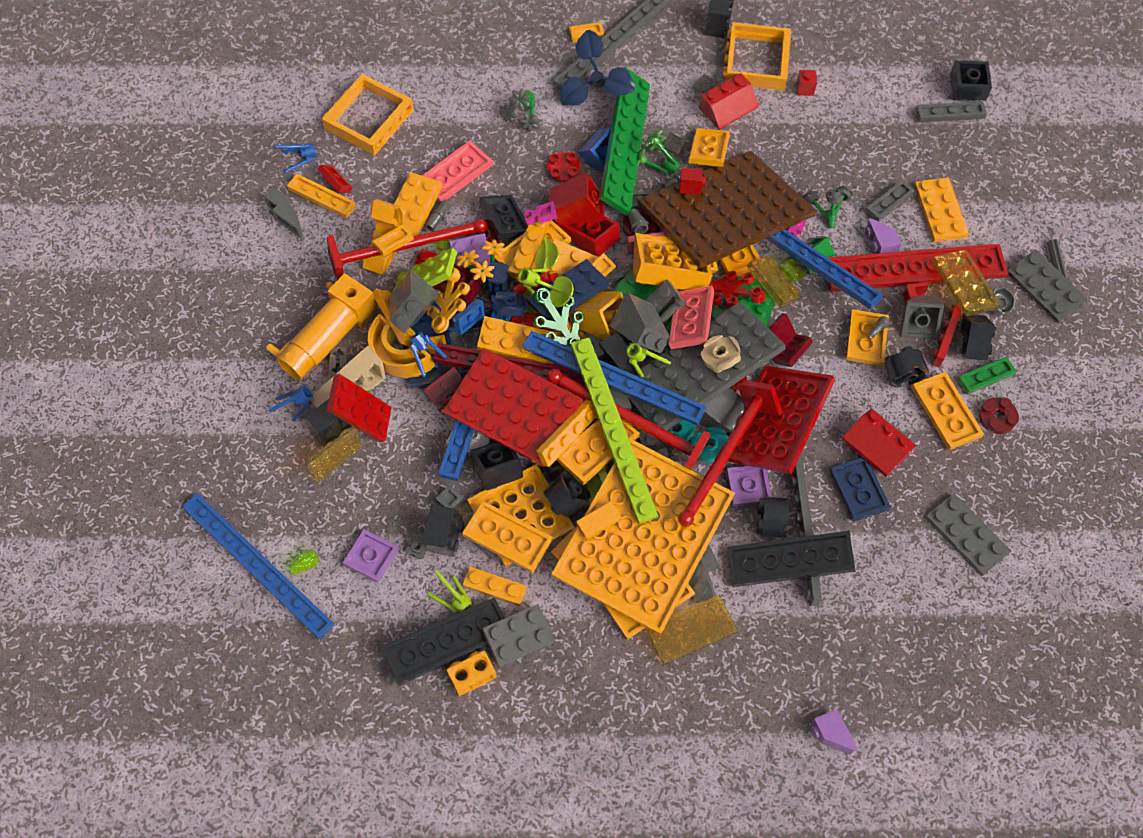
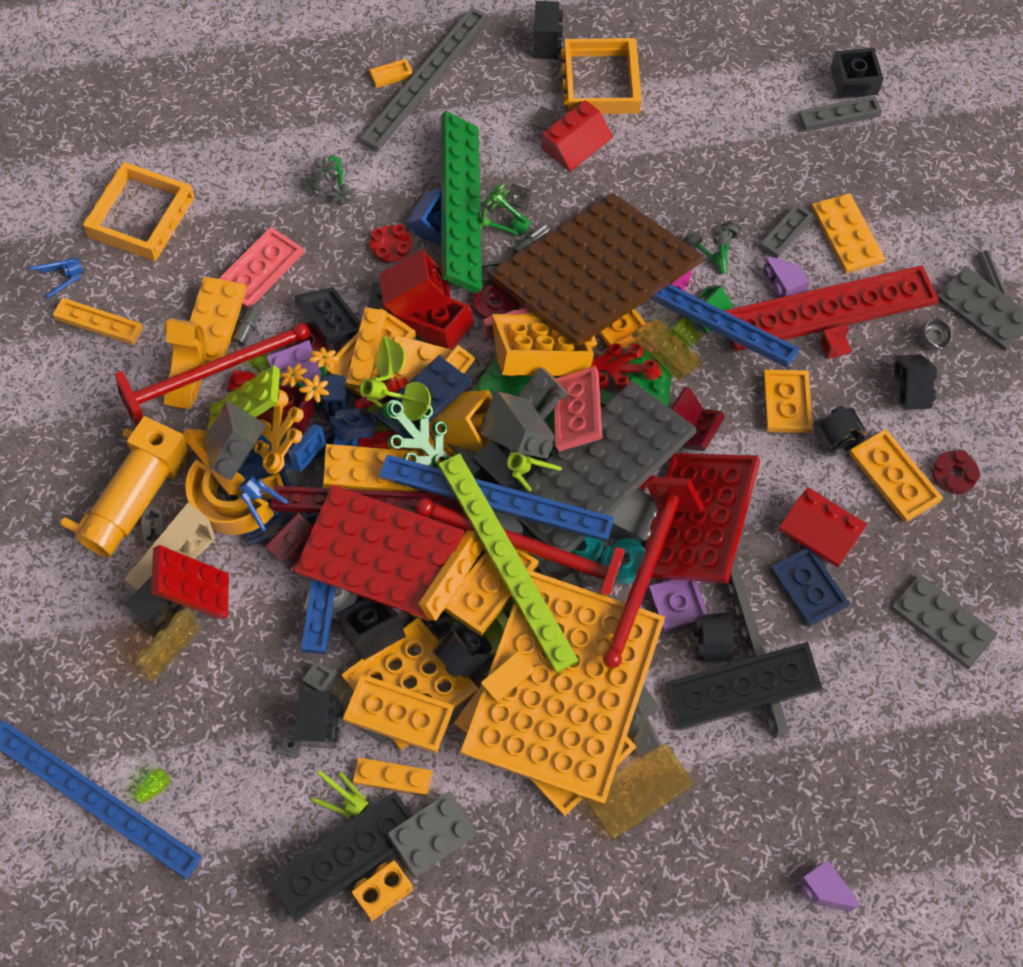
camera: 10 degrees left, 0 degrees up
(283, 211) = (54, 348): dark grey slope -> none
(299, 396) = (115, 578): blue plant -> none
(338, 182) = (111, 297): red plate -> none
(370, 556) = (234, 764): medium lavender plate -> none
(393, 240) = (197, 366): light orange tile -> none
(543, 213) = (377, 307): dark pink plate -> none
(618, 83) = (441, 128): dark blue plant -> none
(637, 222) = (492, 300): dark grey cone -> none
(691, 181) = (549, 241): red brick -> none
(709, 147) = (562, 195): light orange tile -> none
(724, 361) = (623, 459): tan plate -> none
(806, 82) = (664, 101): red brick -> none
(882, 323) = (802, 382): dark grey piece -> none
(923, 317) = (849, 367): dark grey slope -> none
(945, 339) = (878, 389): red plate -> none
(966, 283) = (892, 318): clear yellow plate -> none
(986, 375) = (934, 426): green plate -> none

